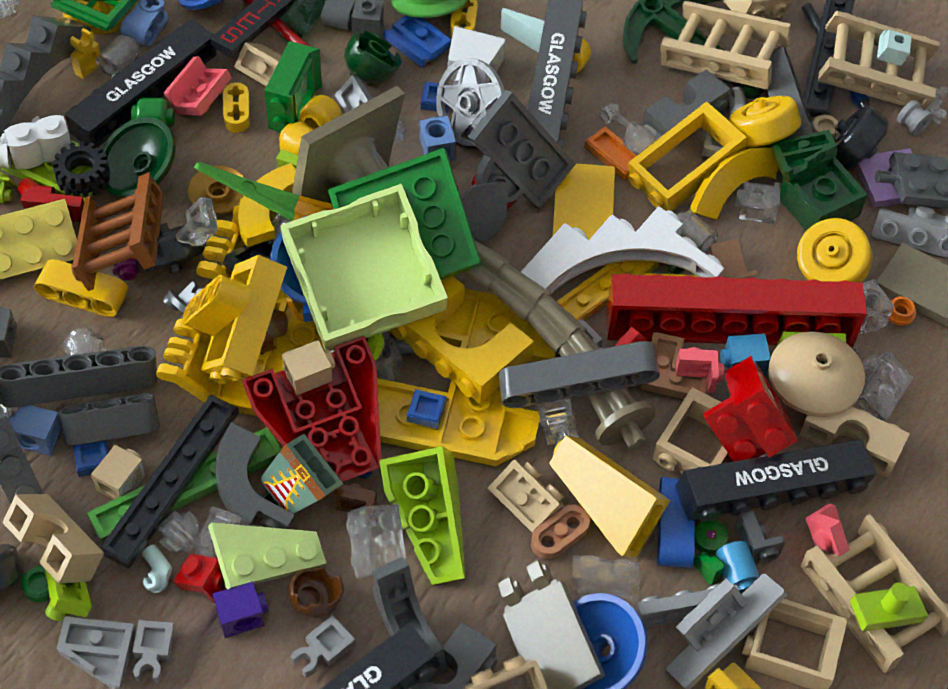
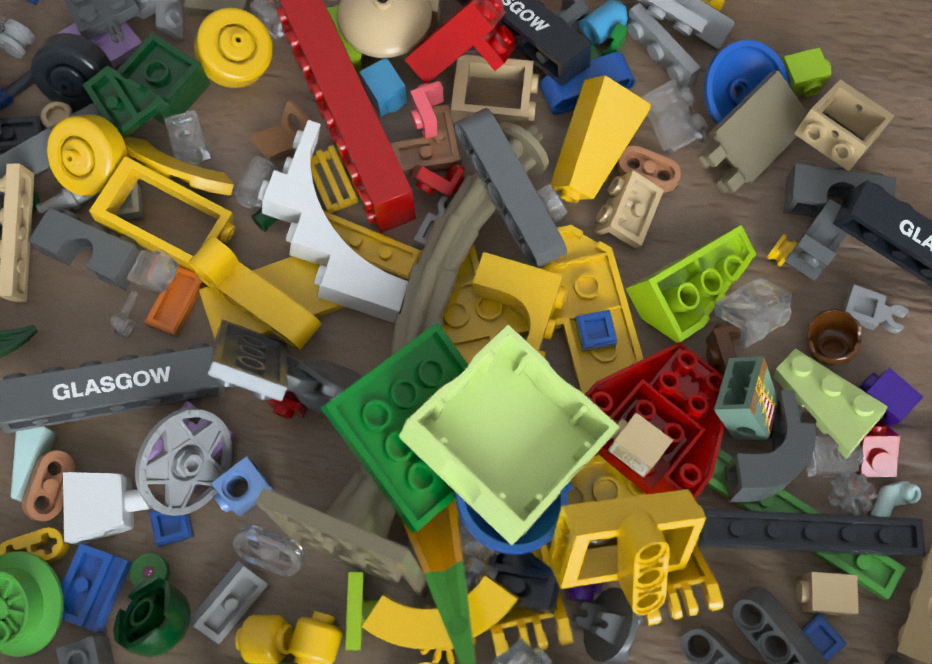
camera: 110 degrees left, 15 degrees up
(409, 75) = (147, 567): none -> green tile
(425, 599) = (782, 250): none -> yellow bush
(507, 31) = (47, 485): none -> nougat plate
(586, 189) = (253, 295): none -> yellow beam

